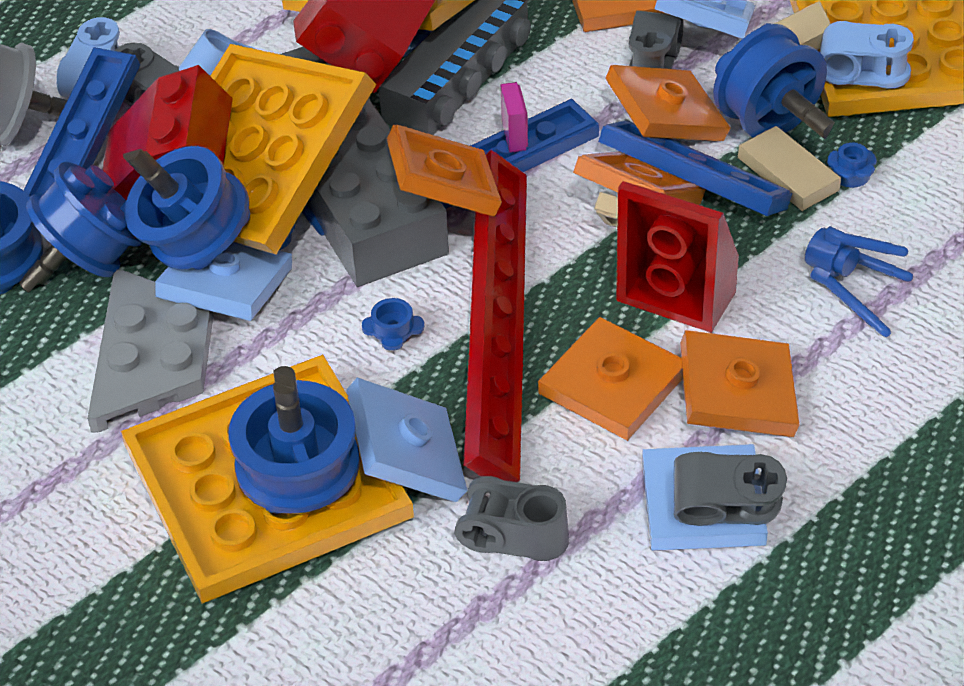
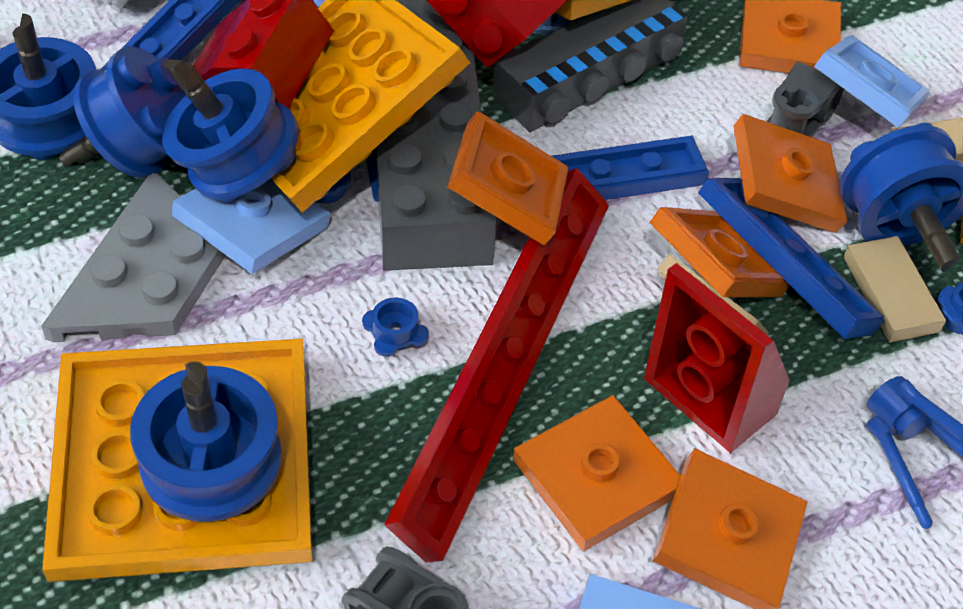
camera: 15 degrees right, 5 degrees up
(406, 440) = (335, 473): light blue plate -> none
(514, 117) = (618, 138): dark pink tile -> none

